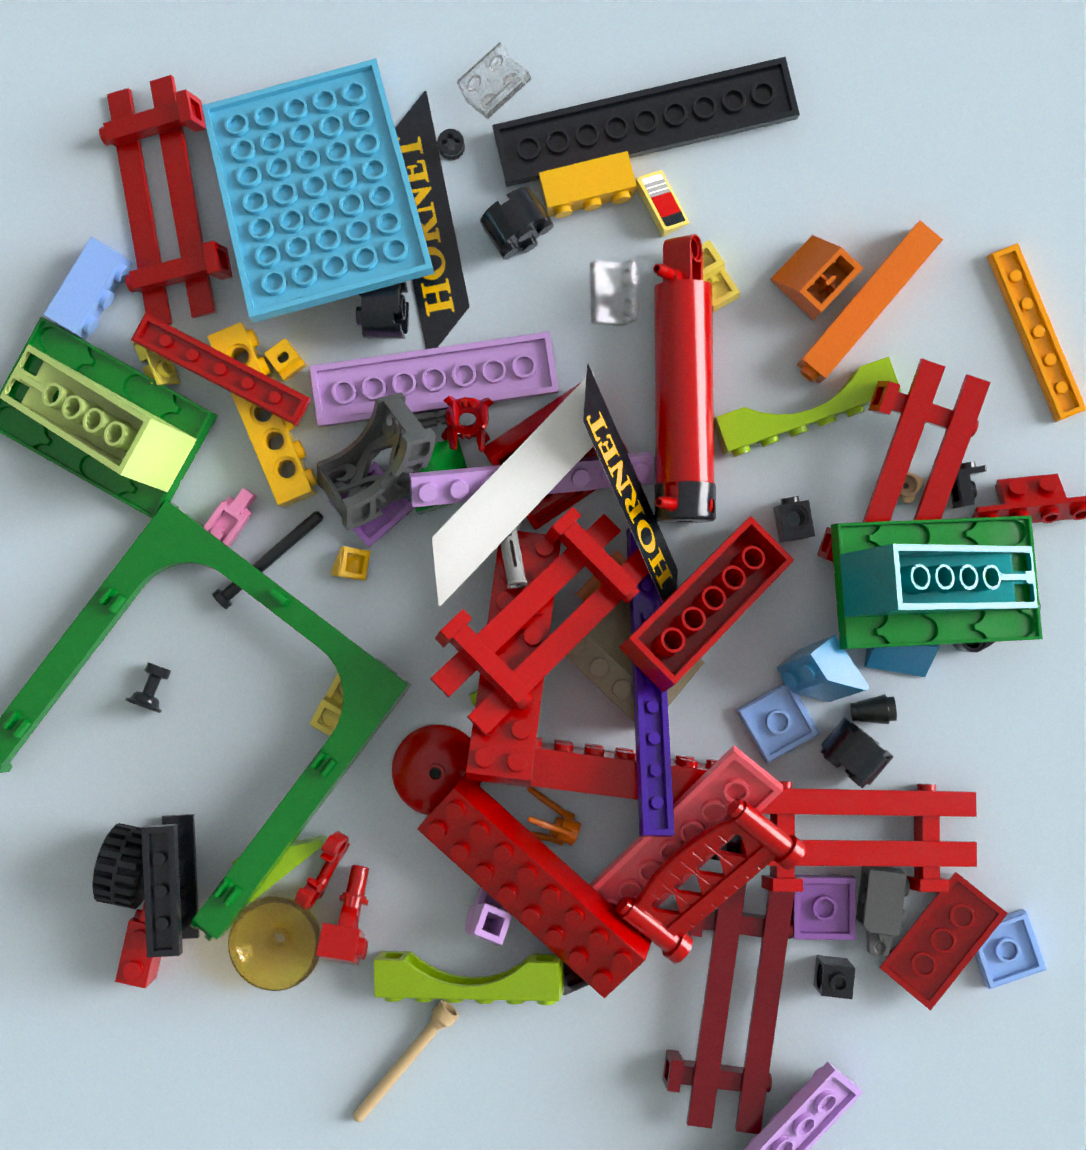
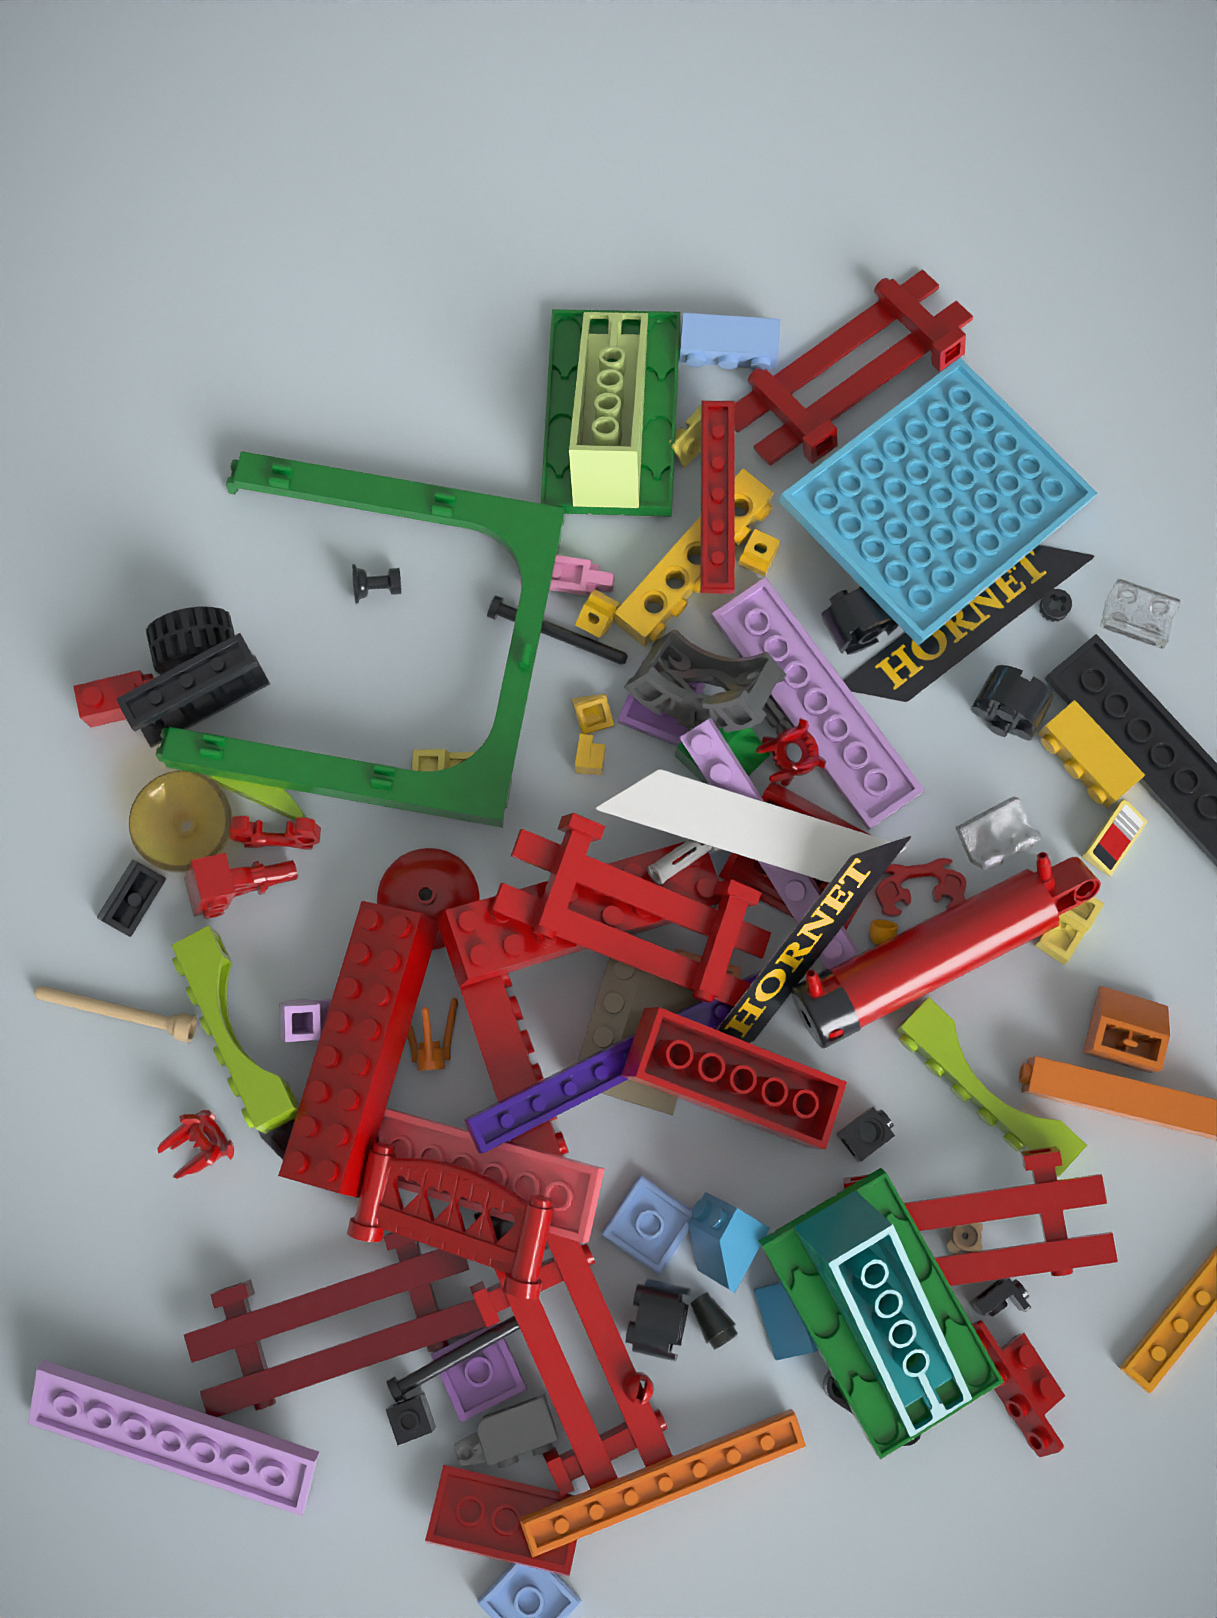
camera: 70 degrees right, 10 degrees down
(271, 518) = (601, 606): none -> yellow piece
(317, 1008) = (131, 898): none -> black slope
(387, 584) = (589, 756): none -> yellow piece
(531, 1045) = (194, 1129): none -> red piece
(633, 351) = (950, 885): none -> red helmet
(644, 424) = (882, 930): none -> light orange hinge
(808, 976) = (400, 1387): none -> black bar
(896, 798) = (632, 1384): none -> red hinge
(974, 810) = (661, 1482): none -> orange tile

